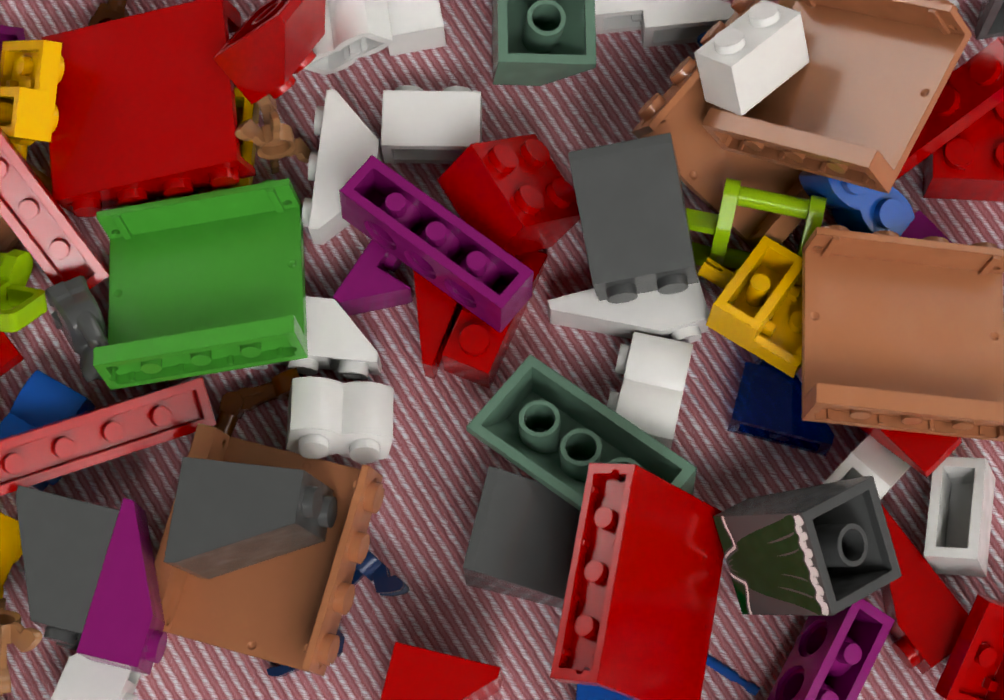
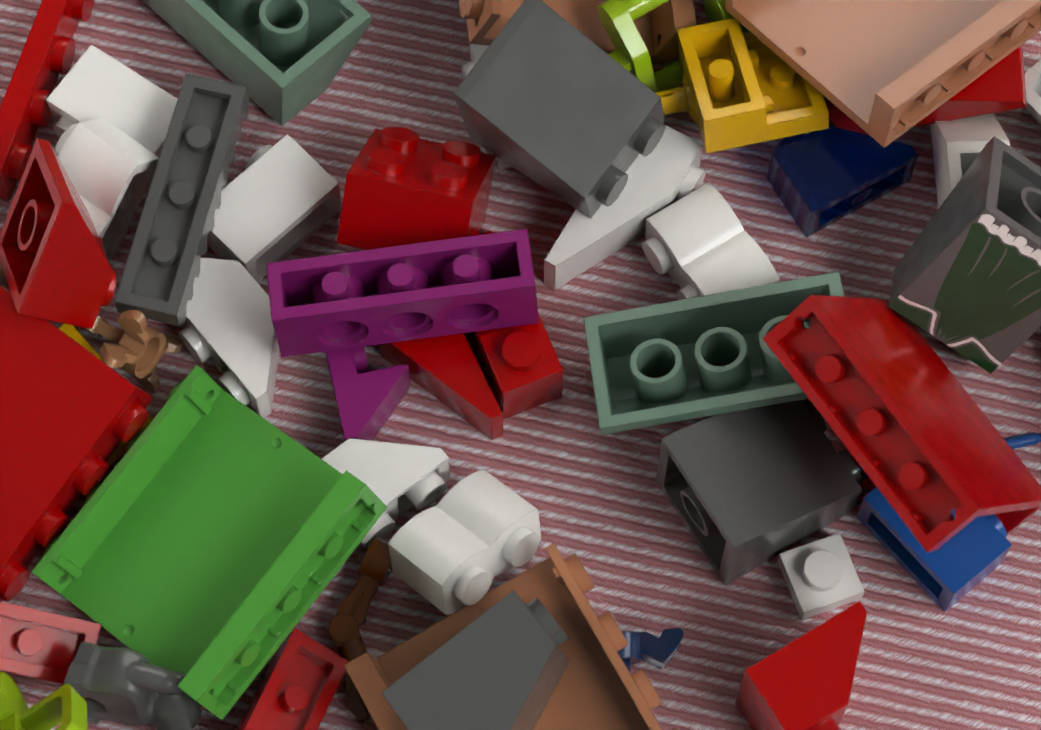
camera: 50 degrees left, 5 degrees down
(378, 76) = (183, 199): none -> dark grey gear
(522, 632) = (820, 576): none -> white plate

